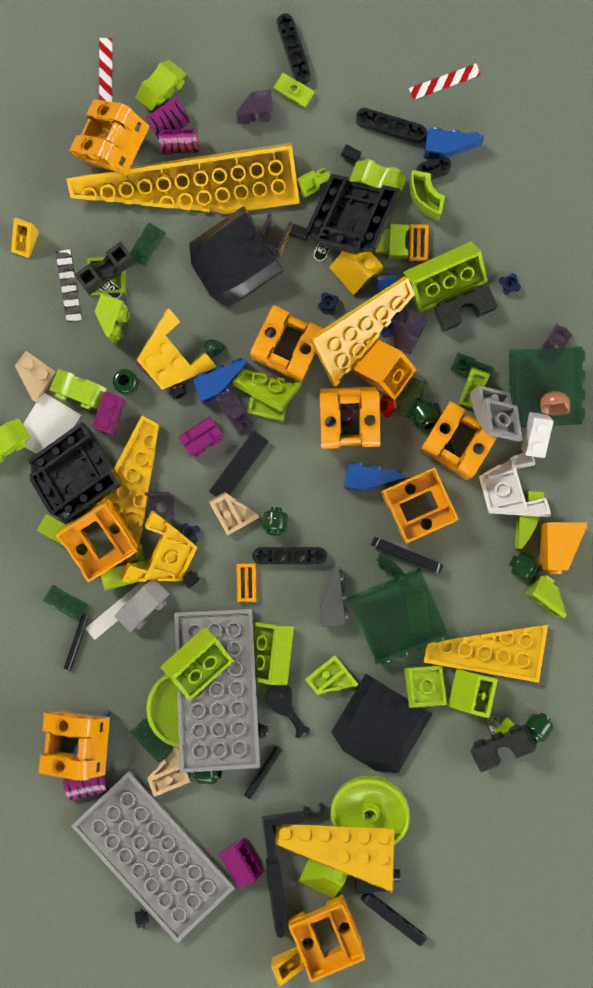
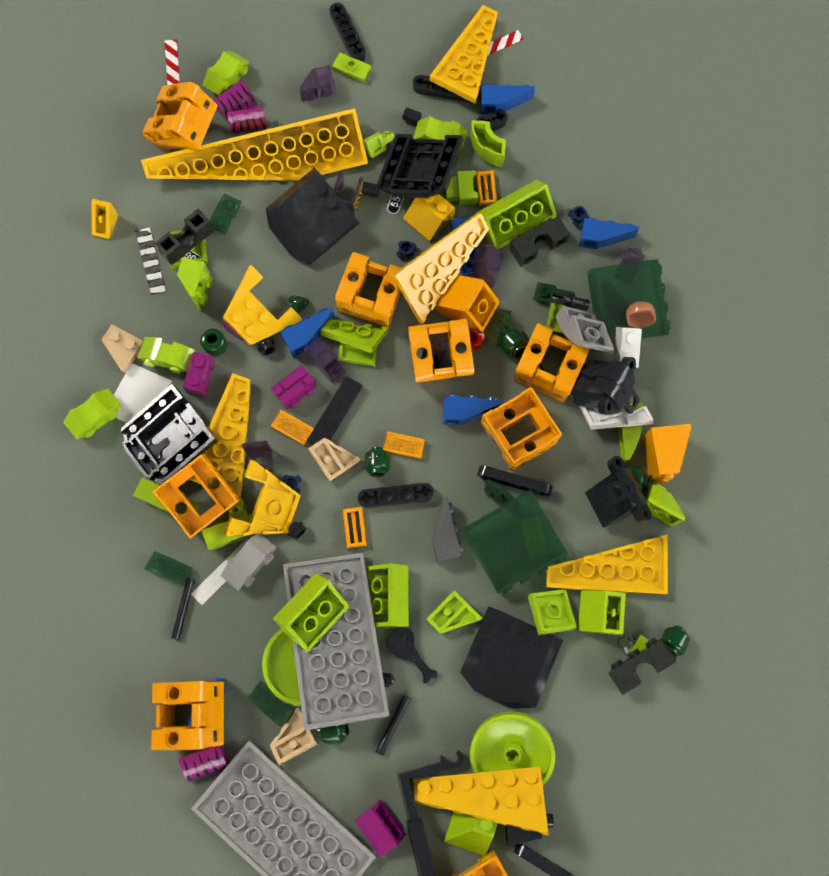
camera: 15 degrees left, 10 degrees down
(195, 476) = (292, 427): none -> light orange tile
(303, 506) = (404, 445): none -> light orange tile
(414, 98) = (466, 59): none -> yellow wing
(487, 379) = (570, 300): none -> black pin
(505, 584) = (618, 496): none -> black piece
(510, 474) = (606, 385): none -> black piece
(530, 307) = (599, 233): none -> blue slope

